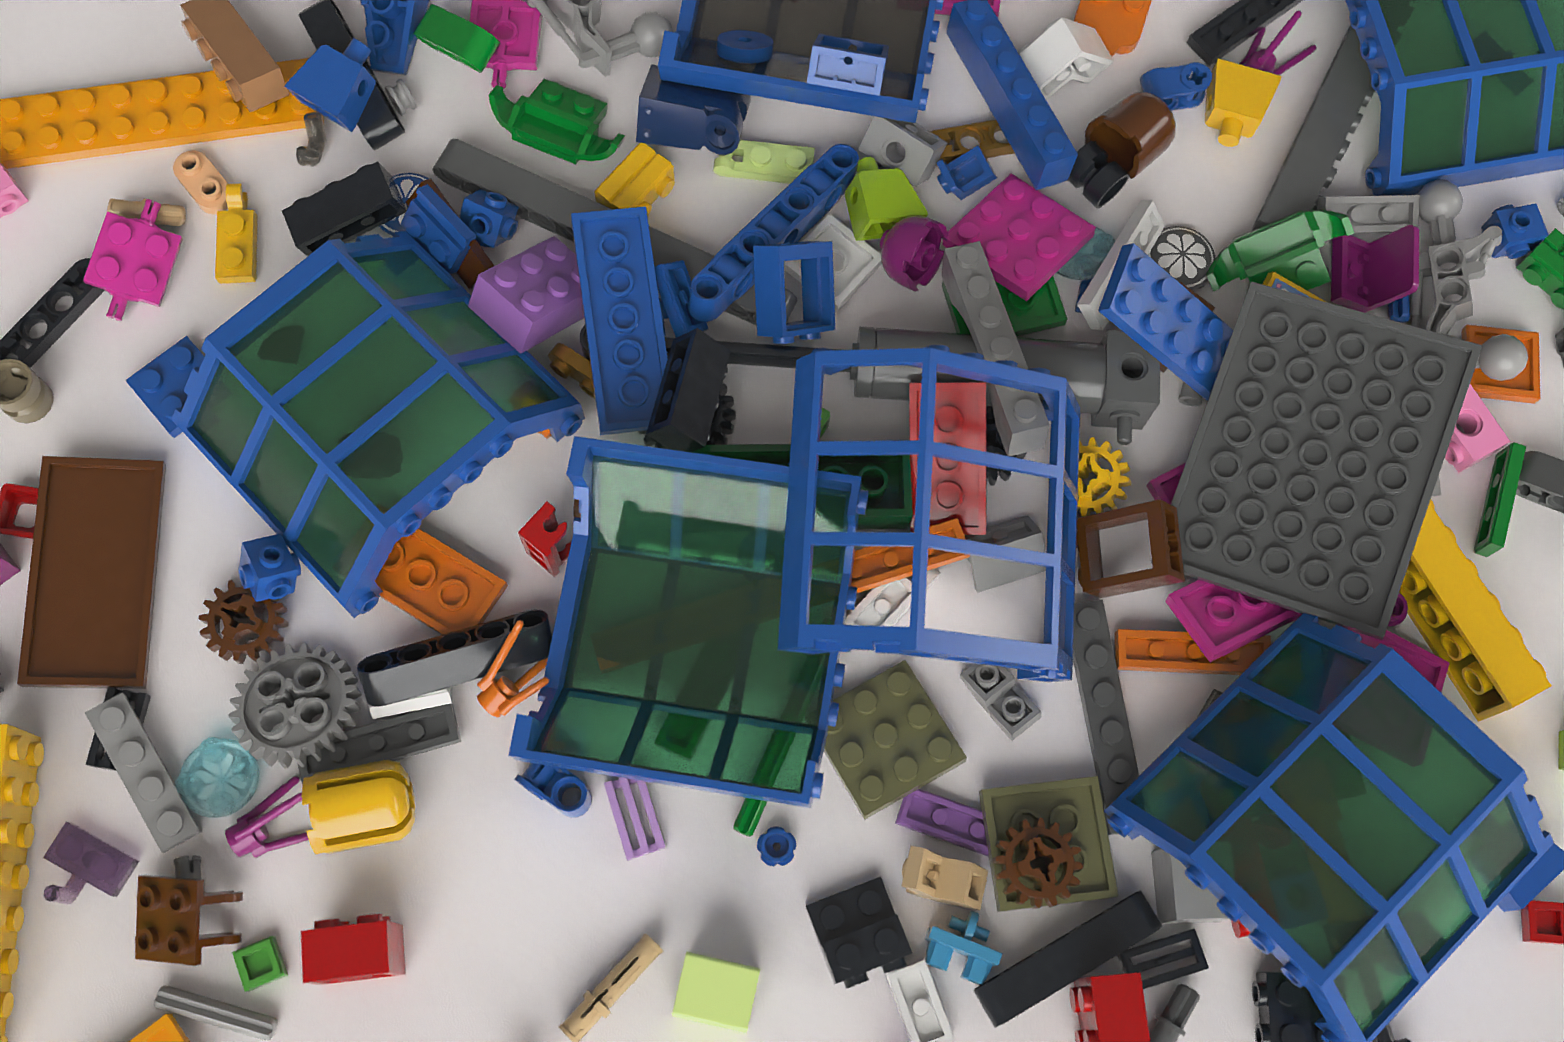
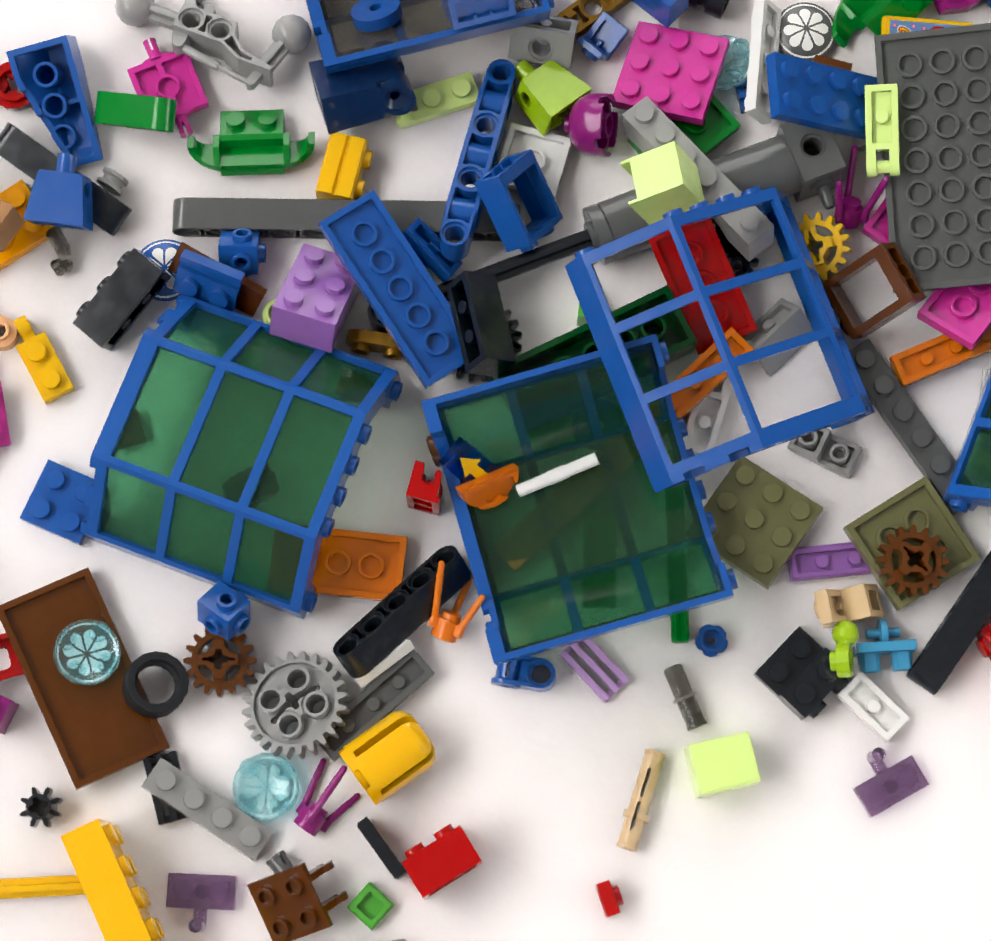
camera: 20 degrees left, 5 degrees up
(109, 546) = (87, 652): none -> clear light blue dish
(154, 584) = (166, 662): none -> black tyre
(301, 898) = (381, 848): none -> black tile
(604, 537) = (466, 461): none -> clear blue tile
(612, 569) = (490, 489): none -> orange tile
(692, 587) = (557, 474): none -> white piece
(716, 895) = (684, 696): none -> clear smoke axle
(907, 936) = (841, 660): none -> lime plate
(952, 318) = (663, 181): none -> yellowish green piece
(1144, 456) = (850, 209): none -> magenta plant
(1216, 380) = (882, 128): none -> yellowish green plate

